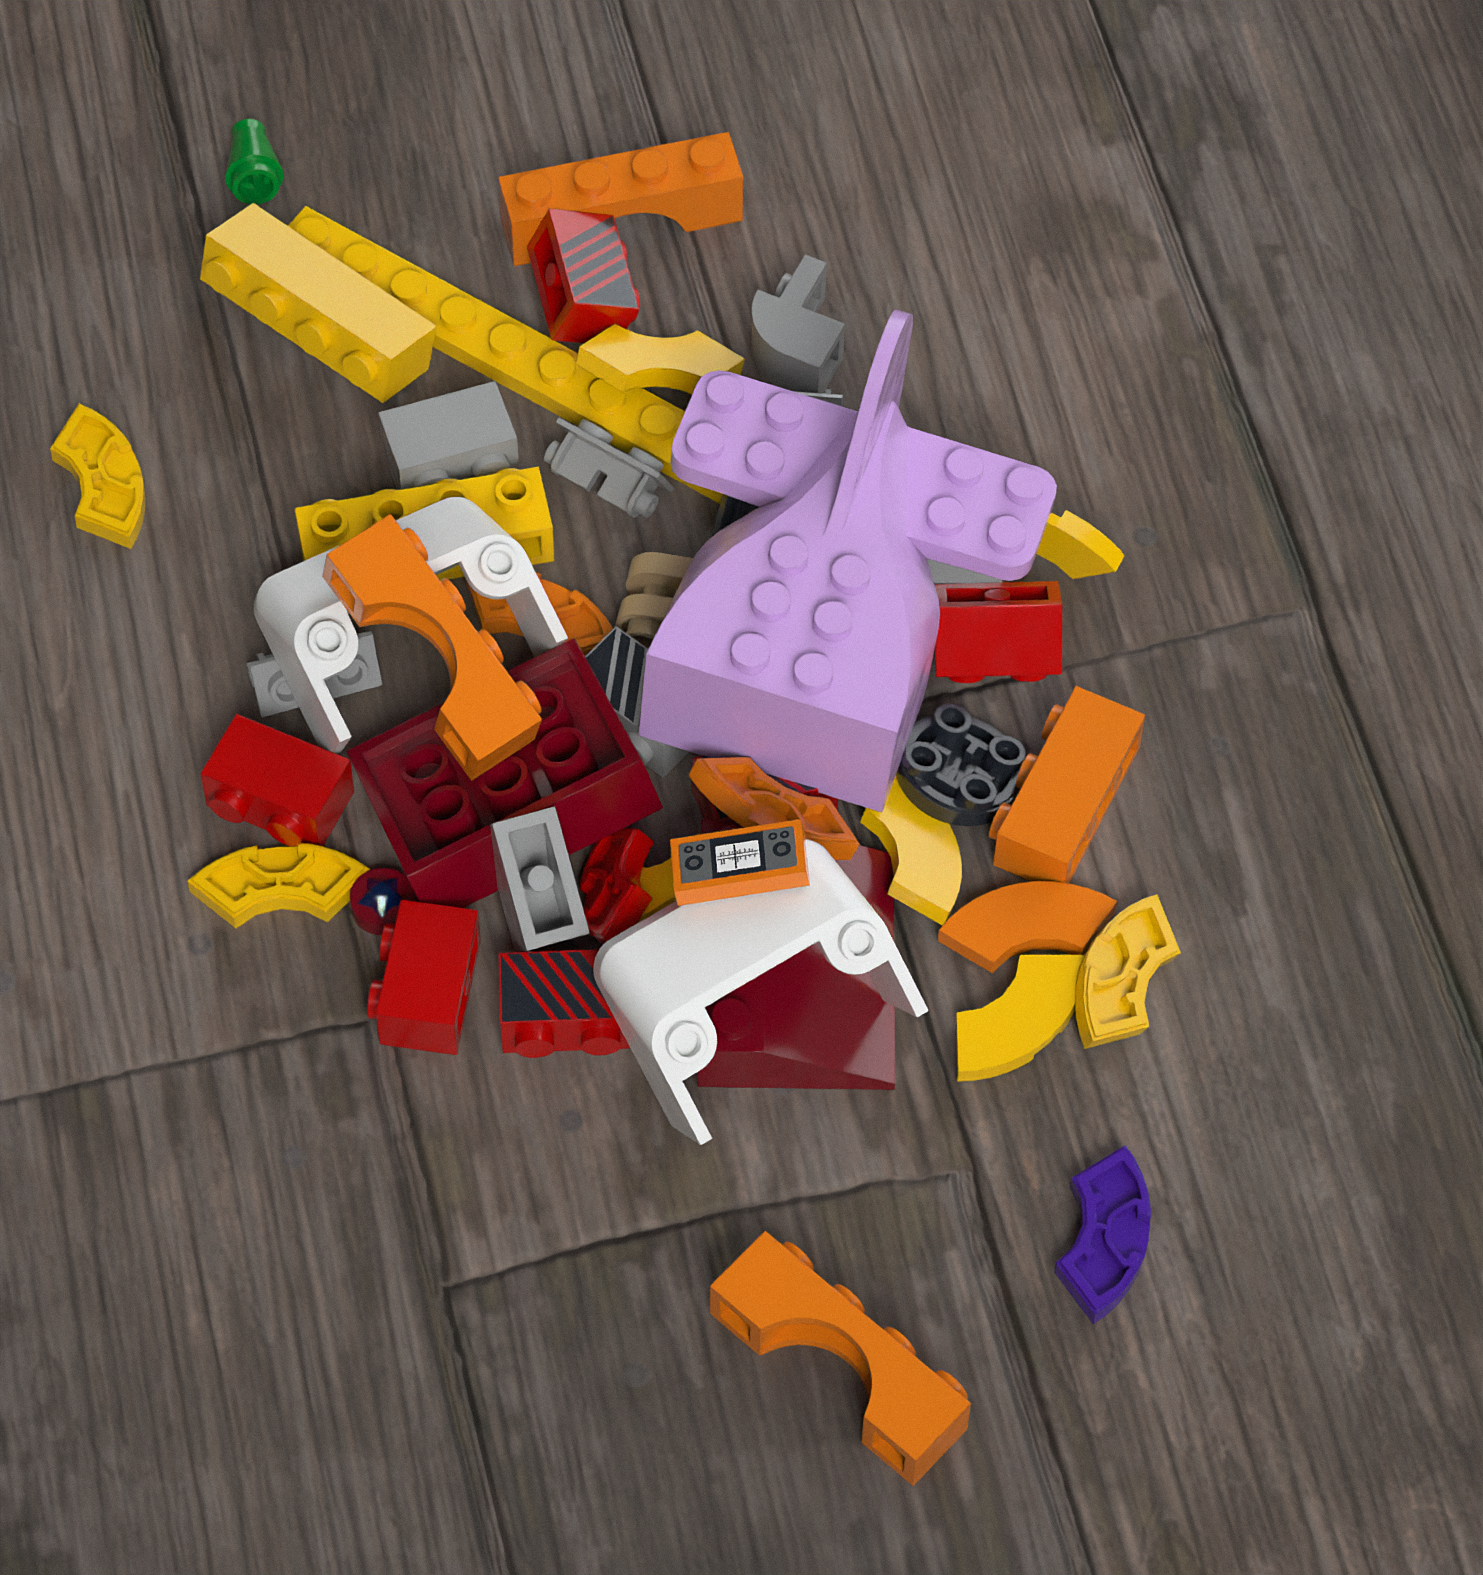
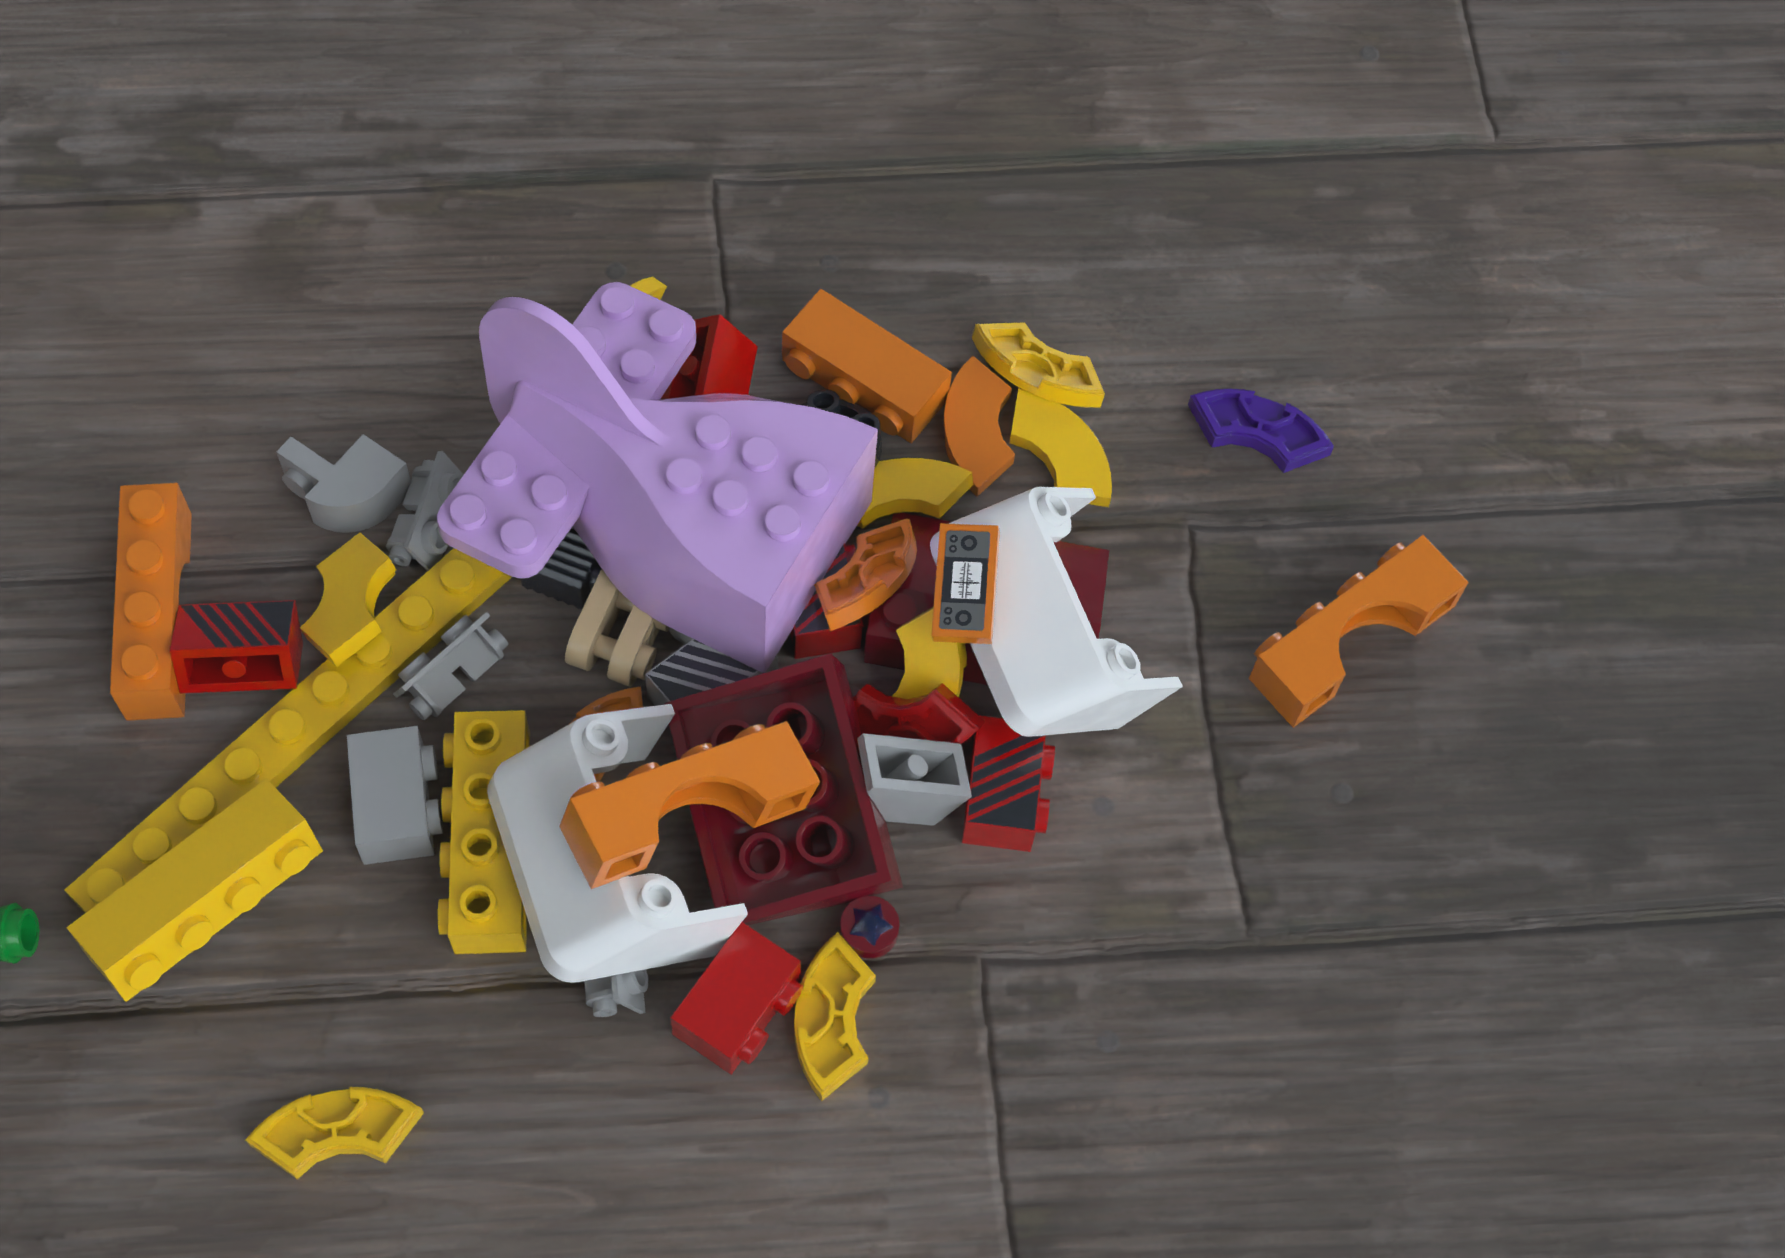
camera: 85 degrees left, 5 degrees up
(426, 977) = (962, 895): red brick -> none

